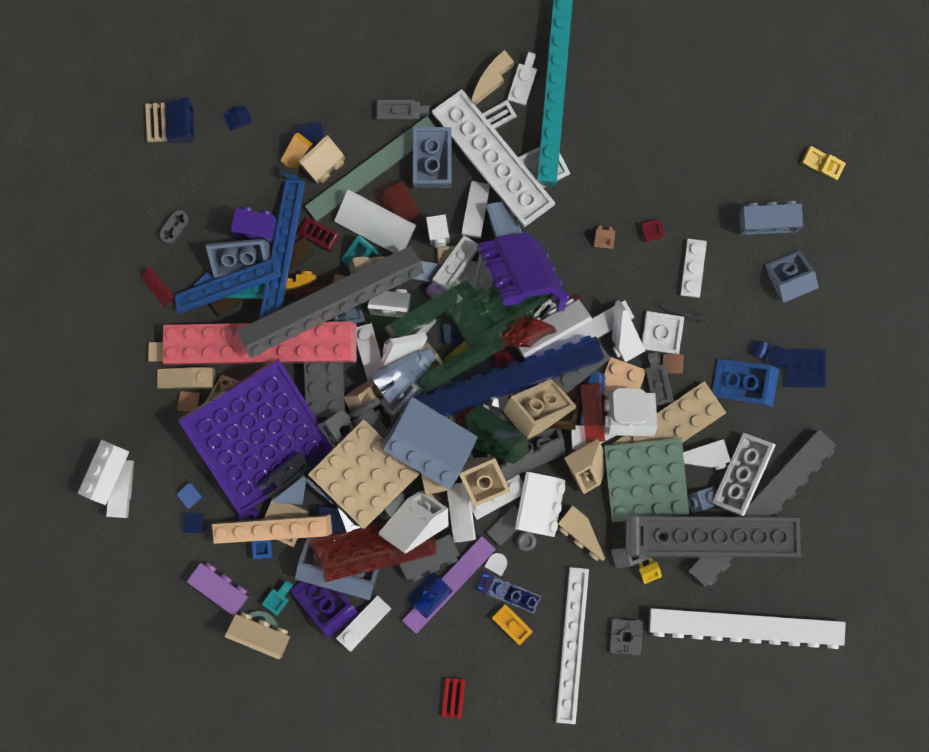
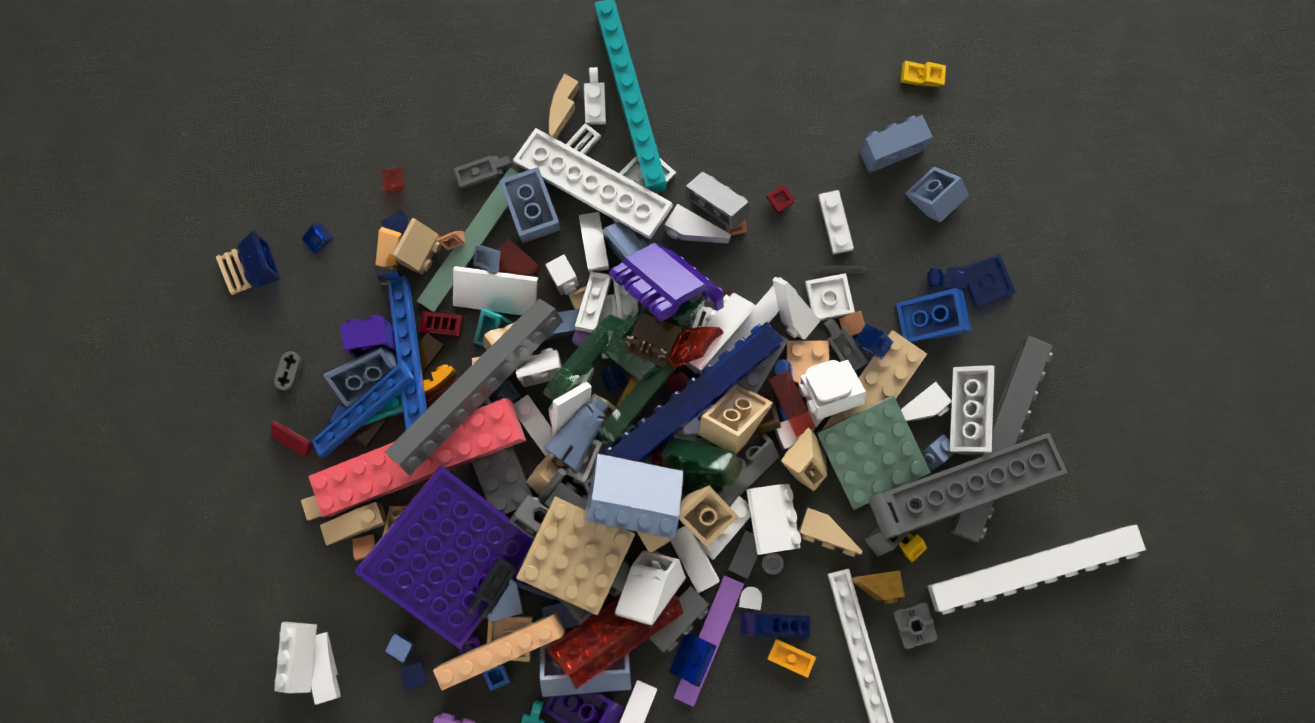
camera: 20 degrees left, 5 degrees down
(321, 90) = (393, 179): none -> clear red plate
(354, 164) = (452, 240): none -> nougat slope
(378, 192) = (487, 258): none -> sand blue tile
(492, 317) = (652, 339): none -> dark brown hinge
(563, 226) = (691, 227): none -> white slope
(596, 213) = (717, 200): none -> brick
(610, 593) = (882, 586): none -> pearl gold slope
(683, 385) = (874, 341): none -> clear blue brick

